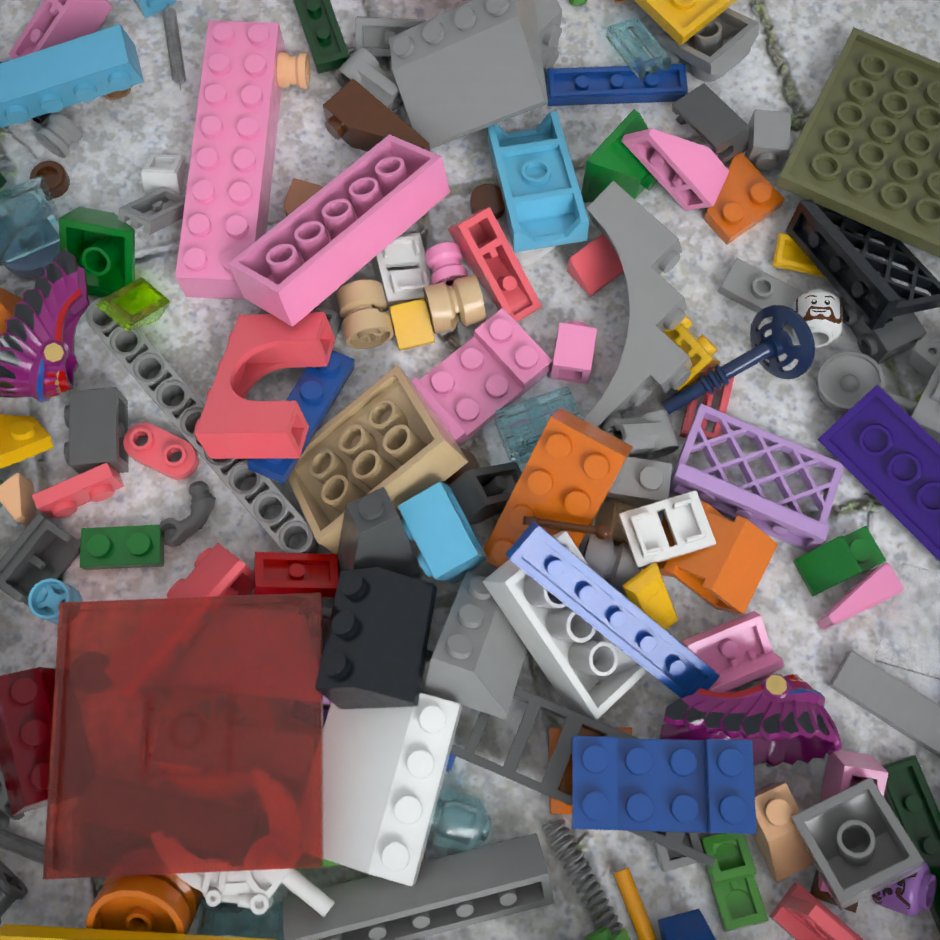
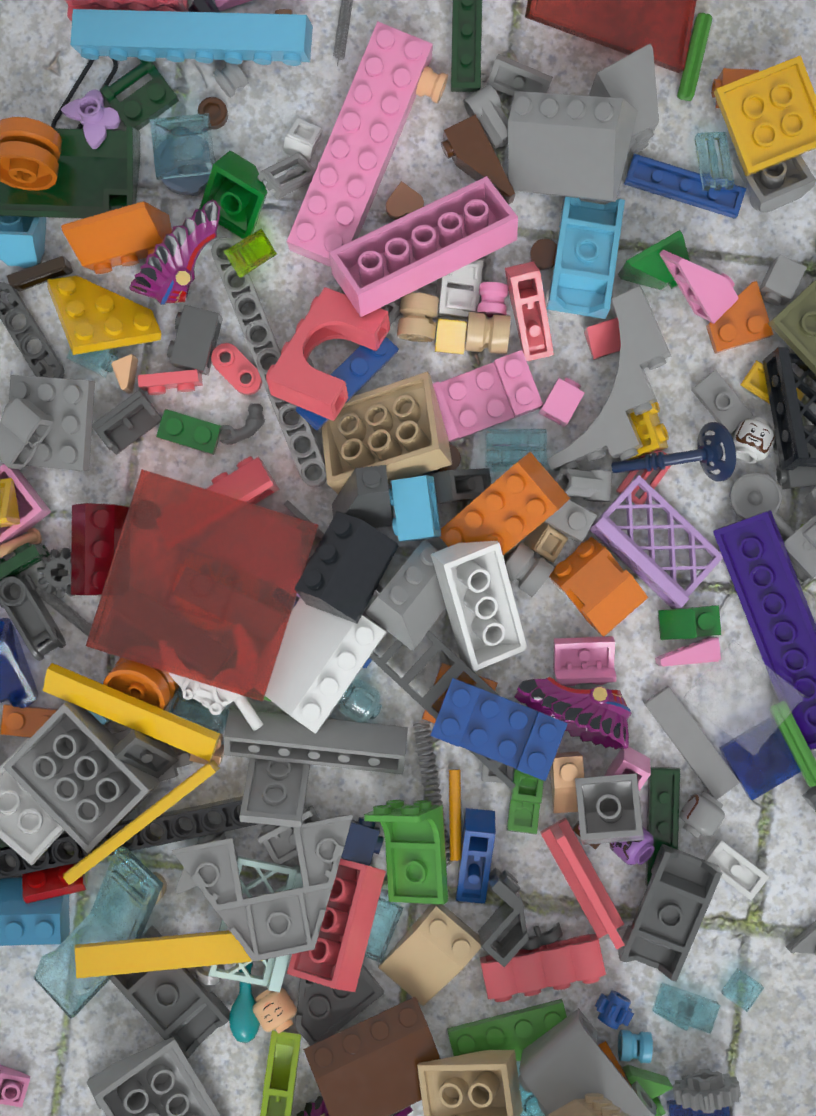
camera: 25 degrees right, 15 degrees up
(47, 596) = (127, 456): medium azure wheel -> none
(295, 573) = (305, 499): red plate -> none
(602, 531) = (524, 552): reddish brown hinge -> none
(610, 612) = (508, 607): plate -> none
(648, 539) = (557, 561): white piece -> none
(651, 595) = (543, 605): yellow tile -> none
(713, 122) = (742, 252): dark grey hinge -> none

